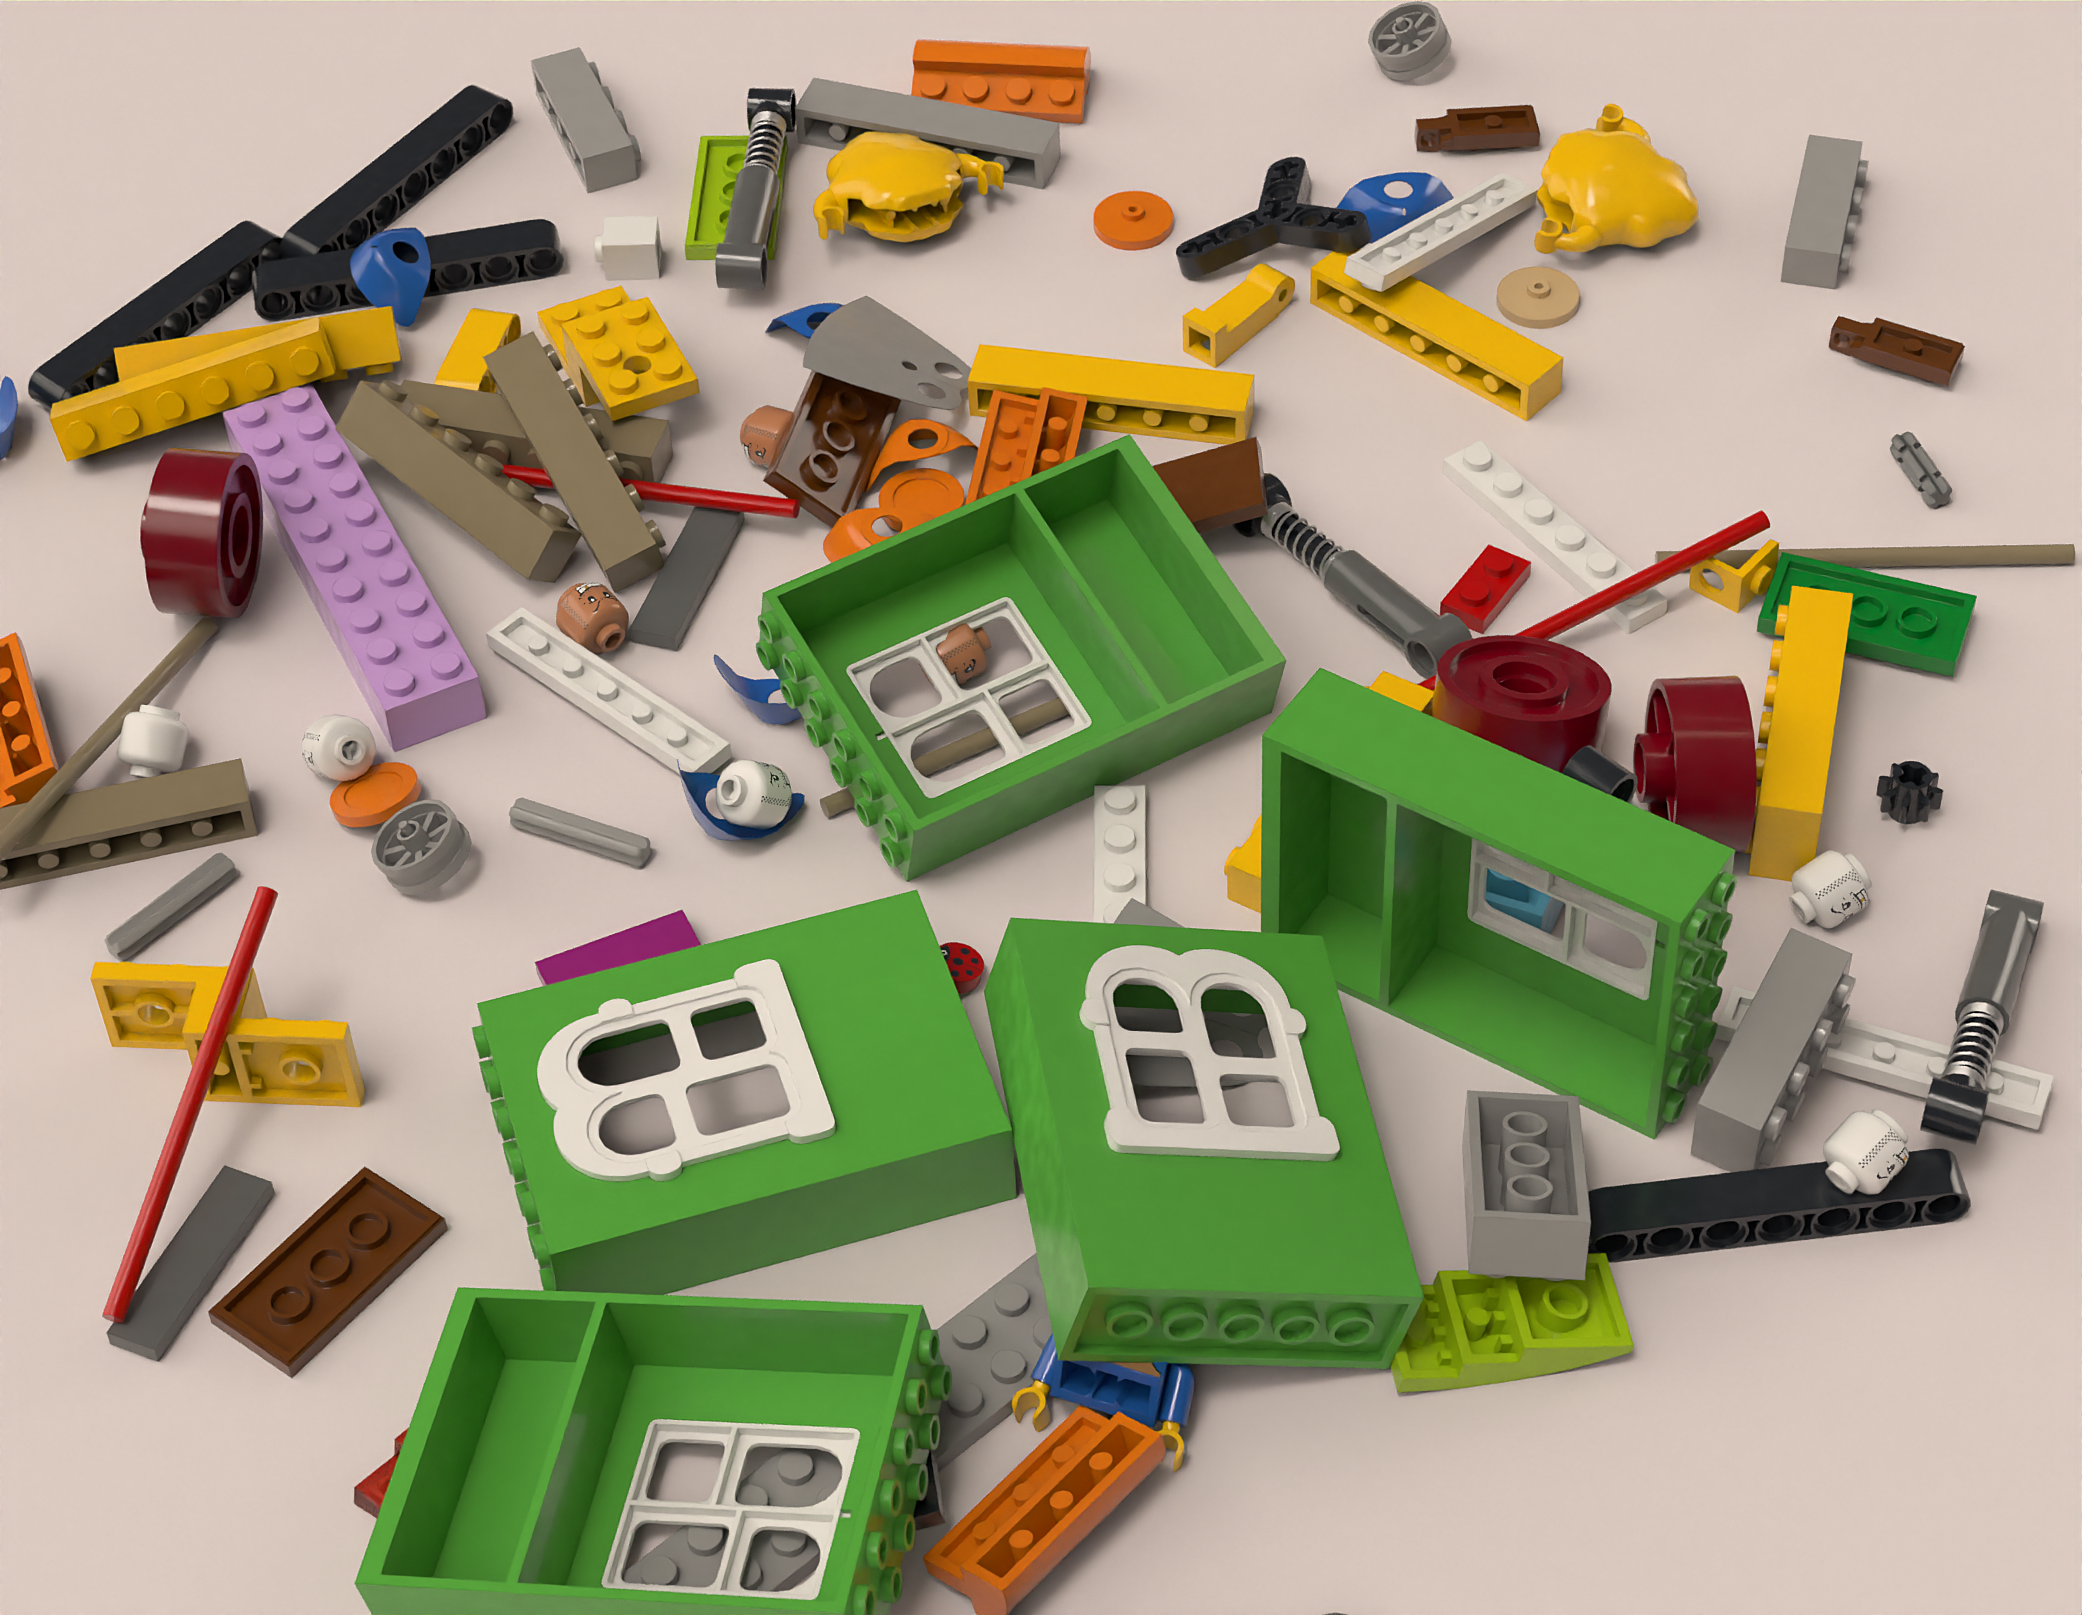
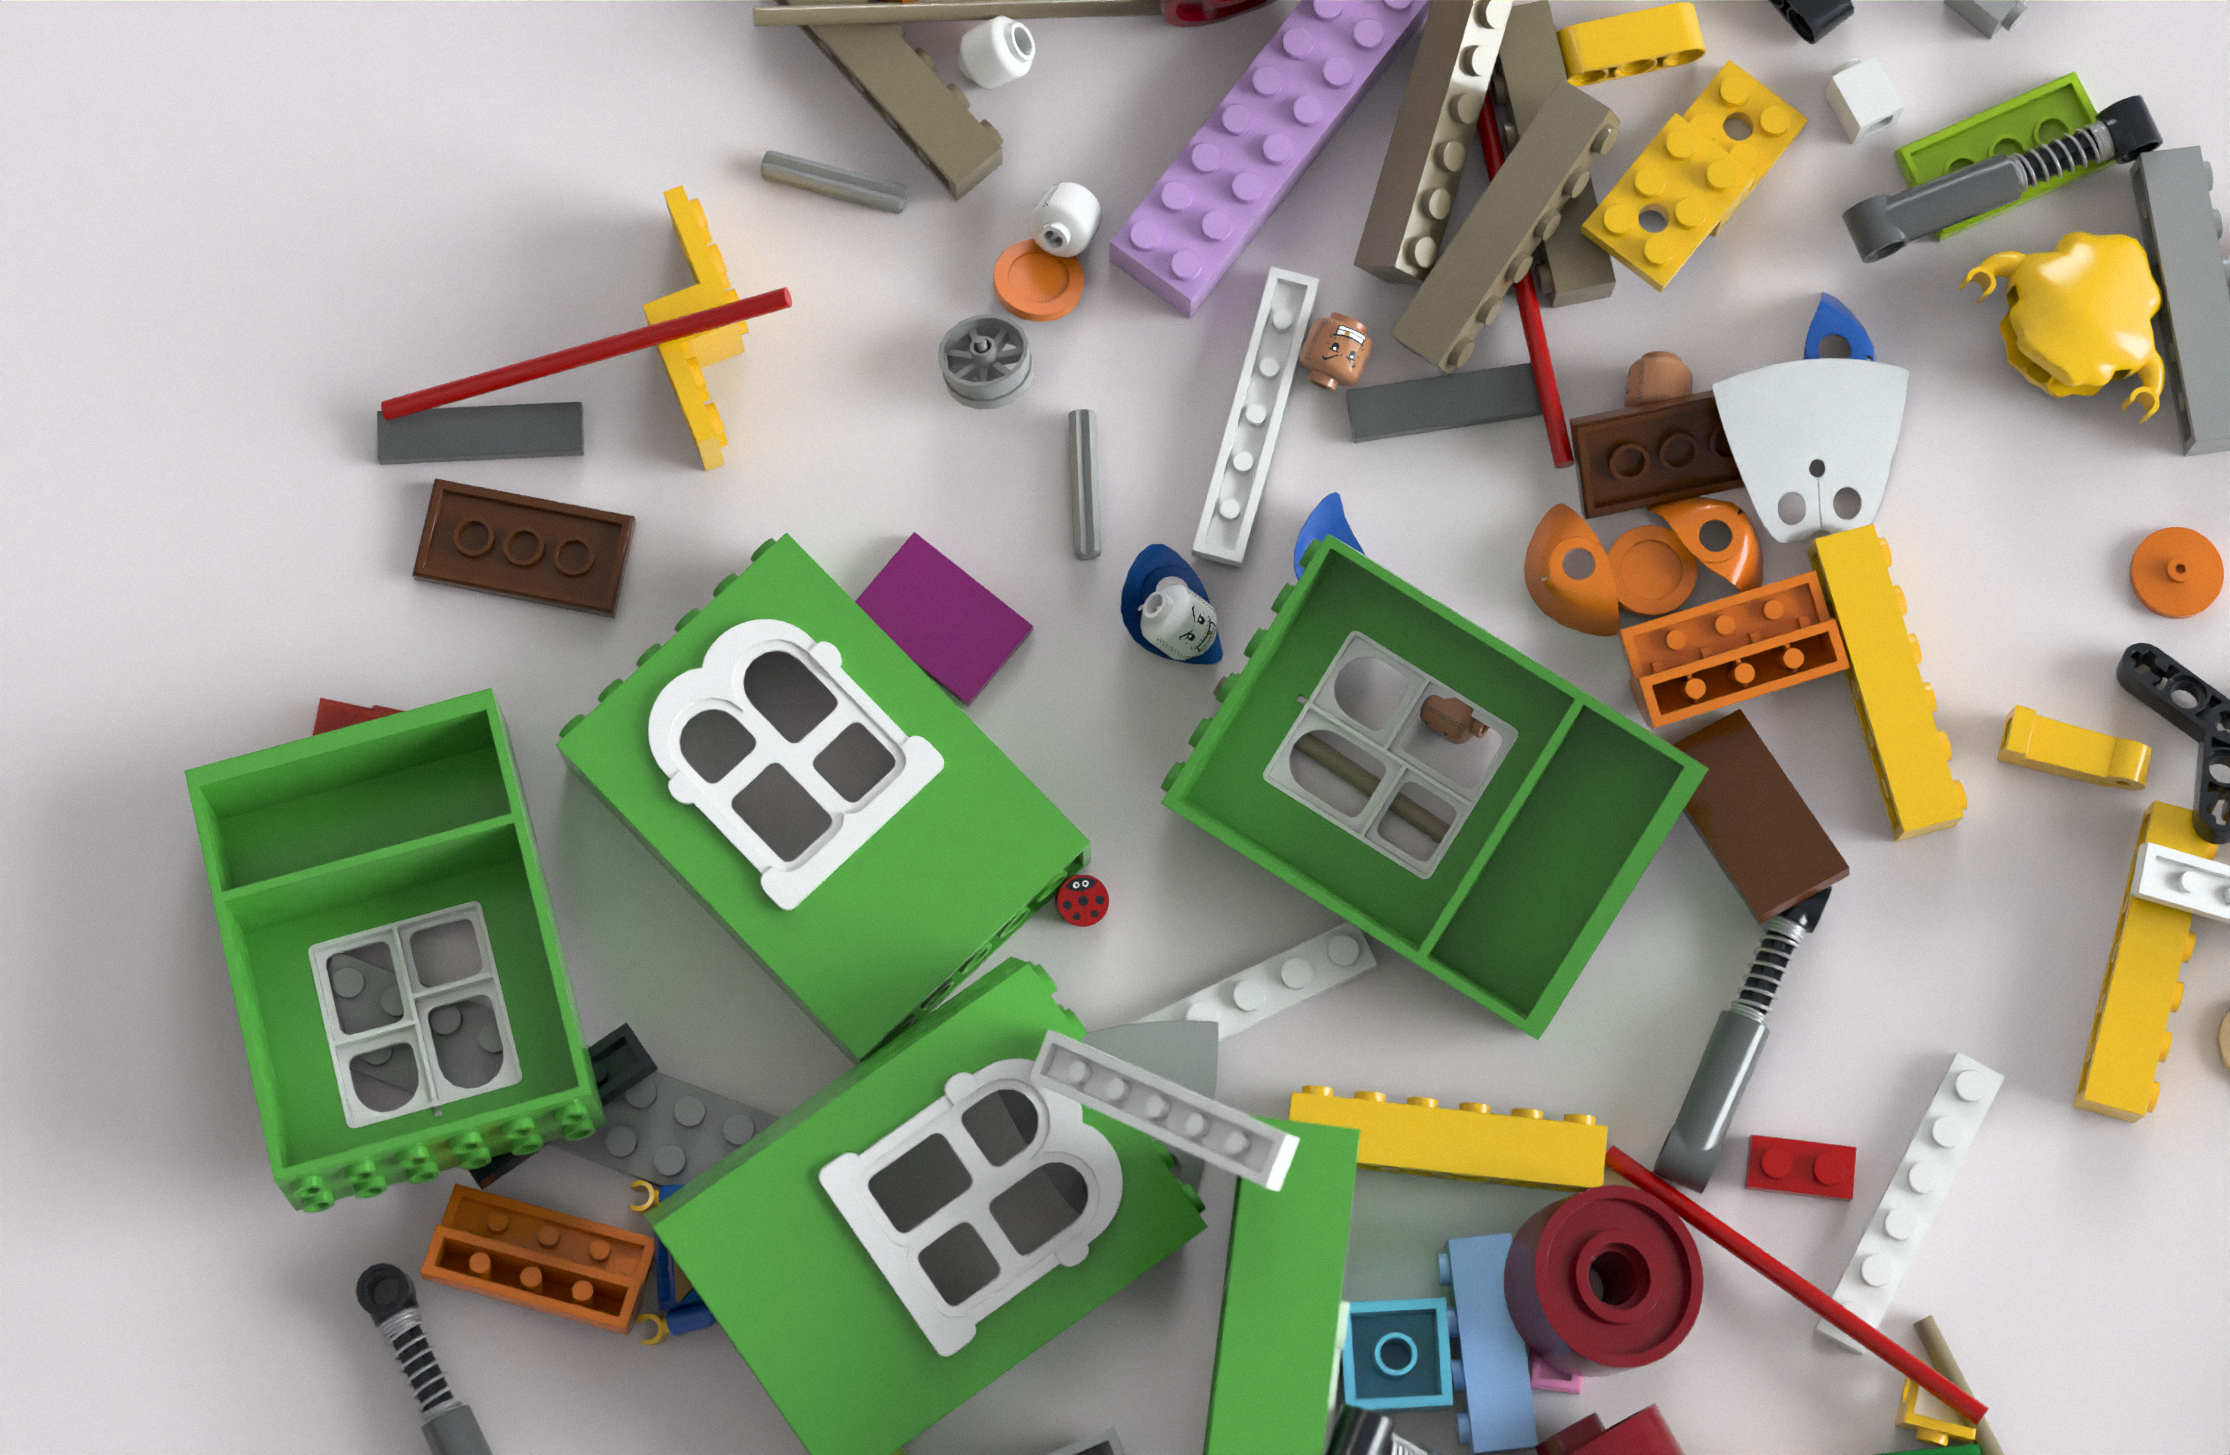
camera: 60 degrees right, 30 degrees up
(1214, 816) = (1164, 1110): none -> white plate

